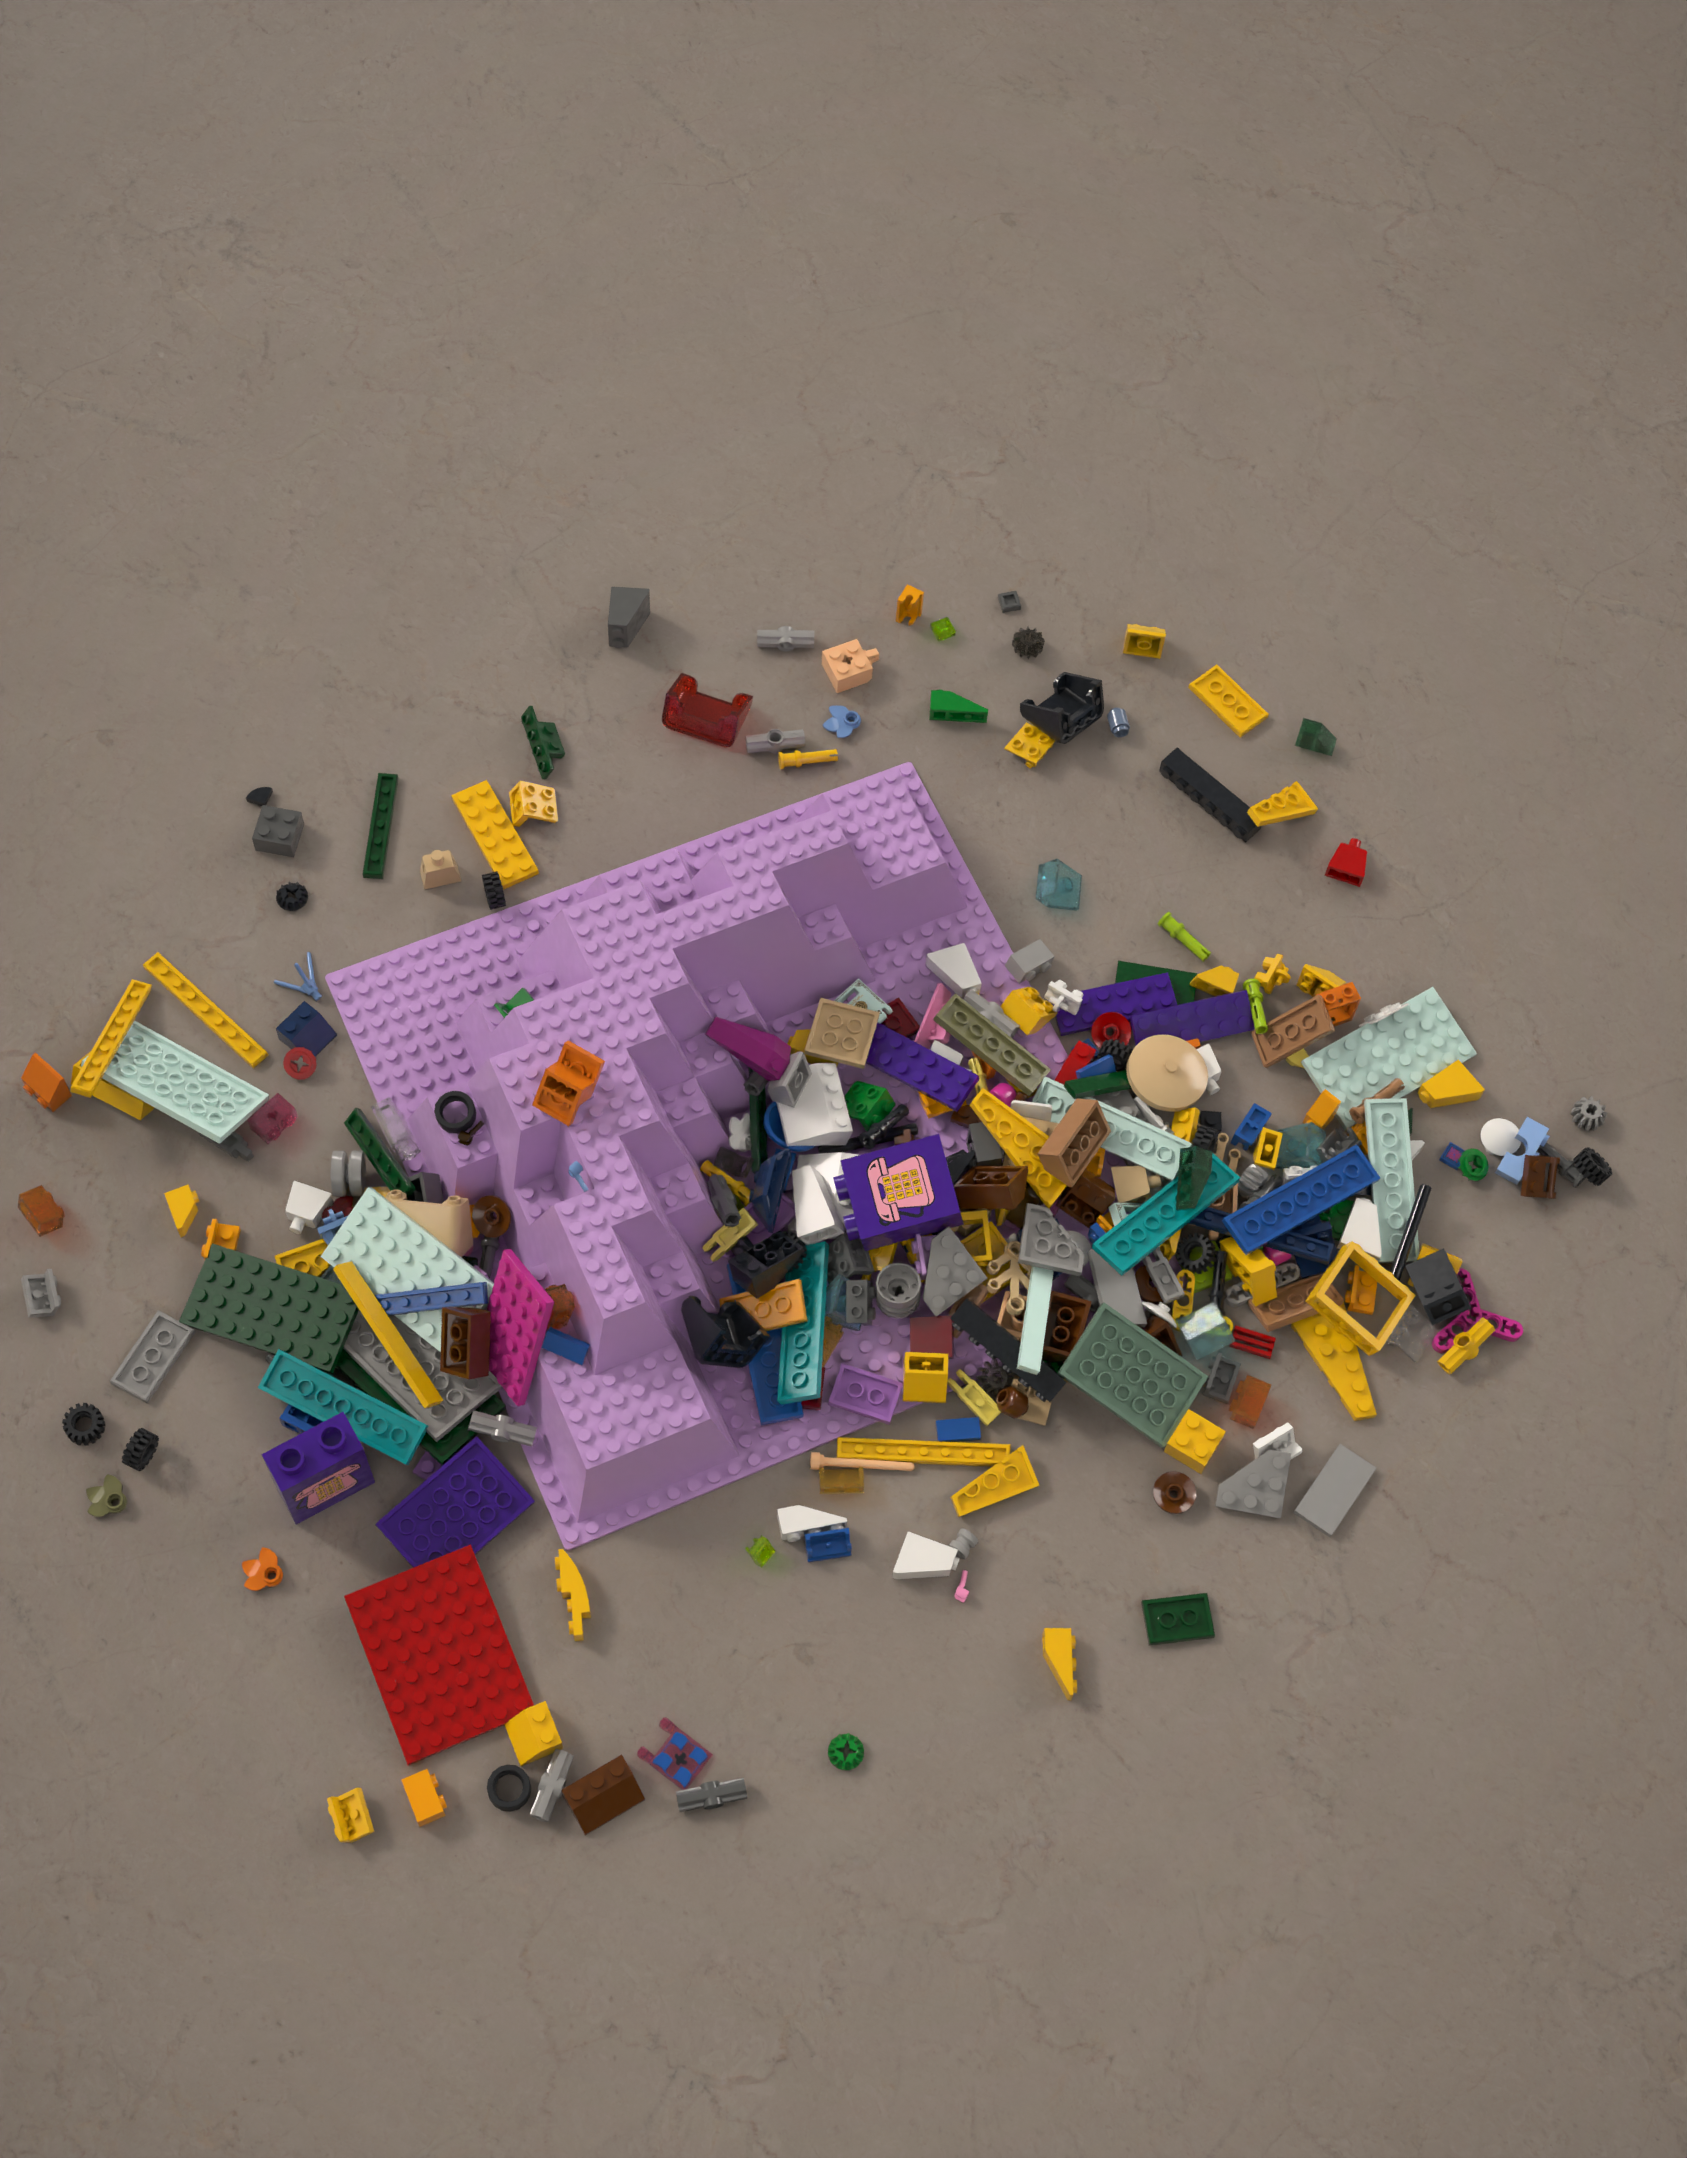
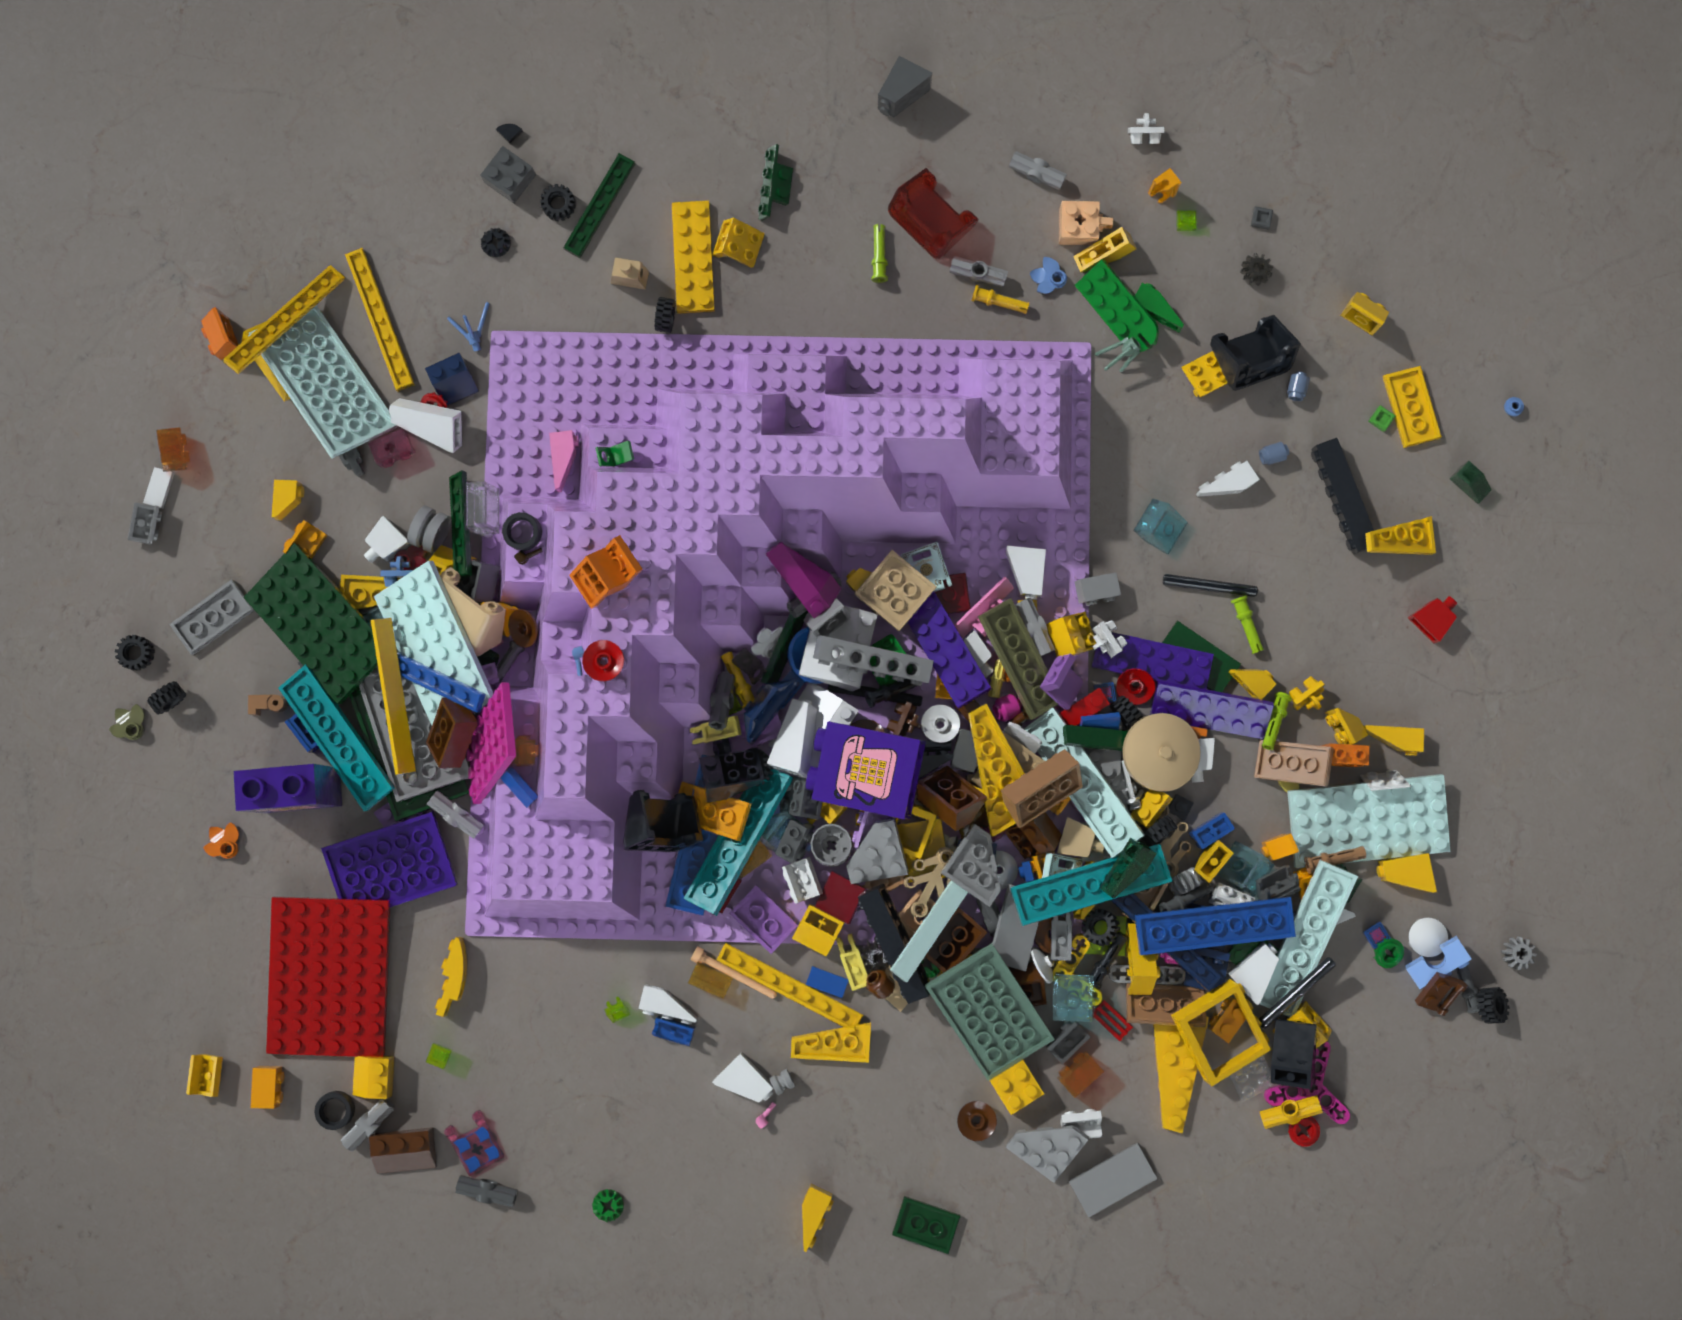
camera: 35 degrees right, 20 degrees up
(39, 1254) = (158, 488): none -> white tile
(250, 1411) = (266, 702): none -> medium nougat leg
(302, 1077) = (430, 422): none -> white slope
(338, 827) = (553, 192): none -> black tyre
(451, 1048) = (563, 453): none -> bright pink slope
(596, 1678) = (438, 1056): none -> clear neon green tile
(603, 1155) = (592, 660): none -> red dish
(677, 769) = (879, 262): none -> lime pin
(823, 1093) = (921, 666): none -> light grey brick
(860, 574) = (1154, 132): none -> white hips
(883, 679) = (1109, 248): none -> yellow slope
(886, 1339) = (802, 880): none -> white bracket
(920, 719) = (1118, 305): none -> green plate
(949, 746) = (1130, 347): none -> sand green plant
(950, 1132) = (942, 714): none -> white dish
(1041, 1051) = (1062, 682): none -> medium lavender bracket
(1105, 823) = (1233, 482): none -> white slope
(1127, 785) = (1273, 453): none -> sand blue brick
(1130, 919) = (1210, 585): none -> black axle
(1207, 720) = (1381, 418): none -> bright green tile
(1316, 669) = (1510, 410): none -> medium blue plate
(1375, 976) = (1399, 738): none -> yellow slope
(1497, 1359) = (1313, 1132): none -> red gear

